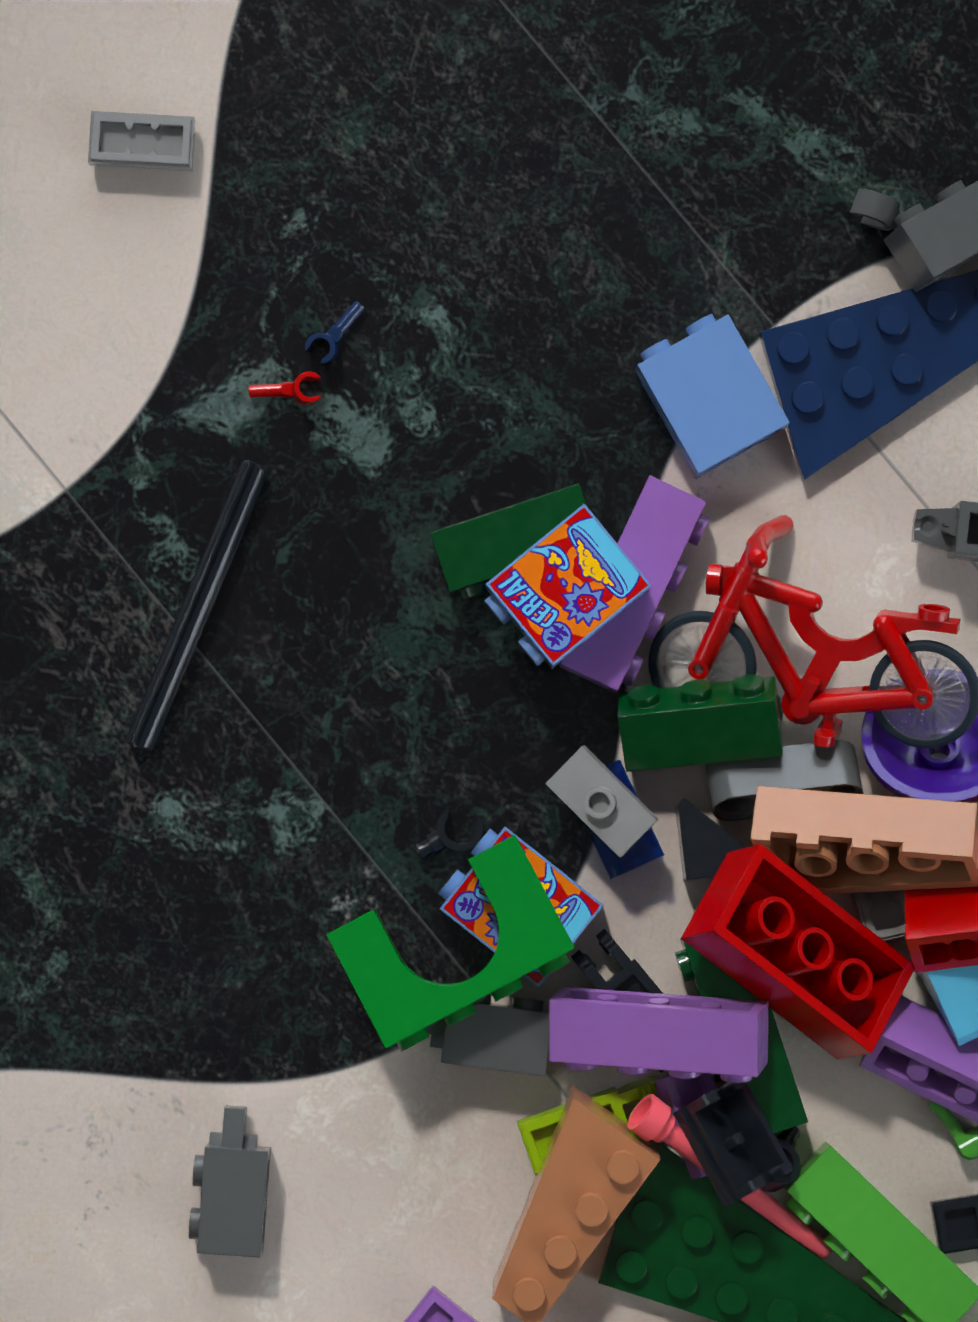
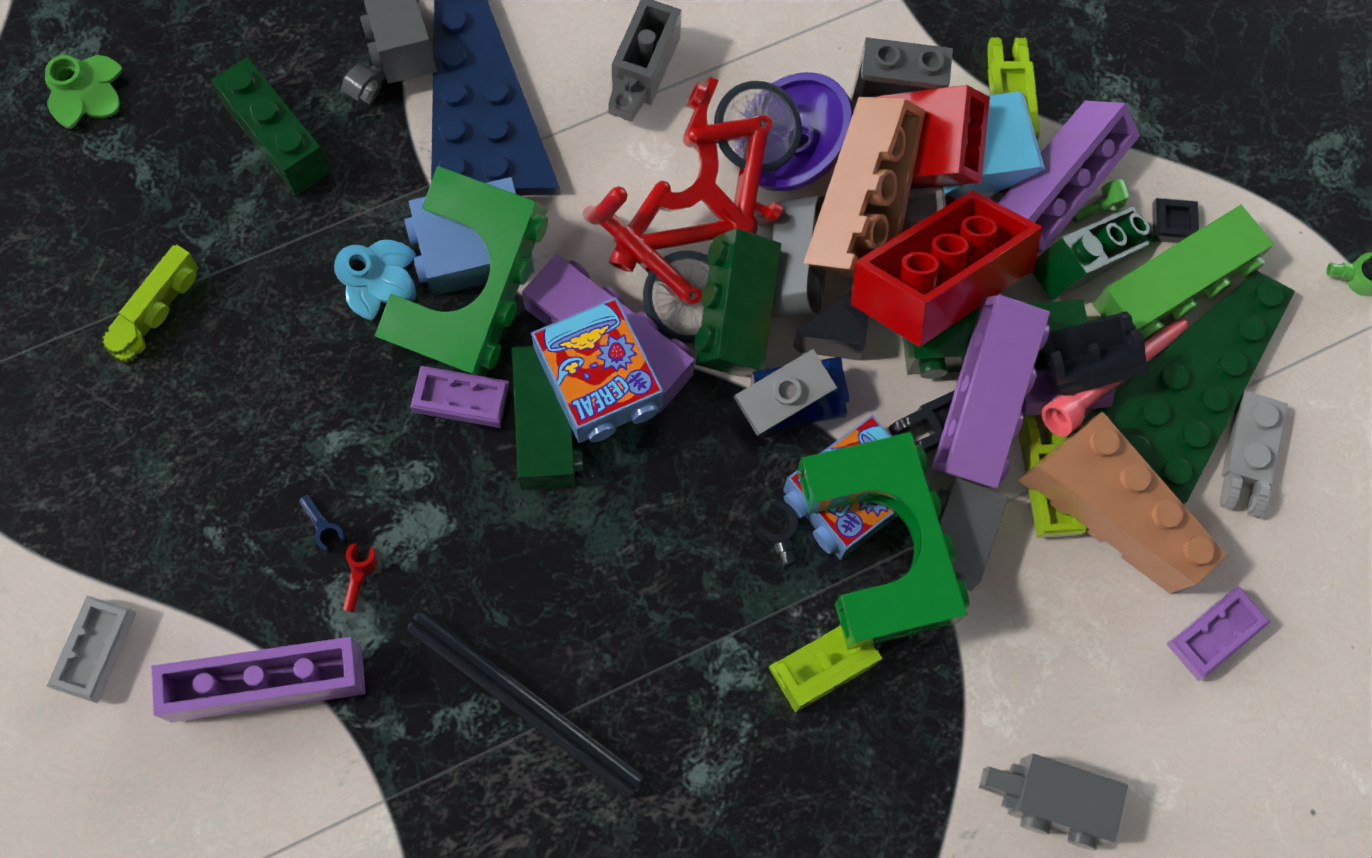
camera: 80 degrees left, 15 degrees down
(148, 327) = (258, 680): none -> medium lavender brick
(308, 909) = (821, 668): none -> lime hinge
(516, 440) = (460, 396): none -> medium lavender plate
(531, 63) = (150, 304): none -> lime hinge
(635, 309) = (382, 275): none -> medium azure plate
(709, 440) = (509, 230): none -> green arch
(789, 122) = (271, 125): none -> dark green brick
(886, 1128) = (1091, 252): none -> dark green slope

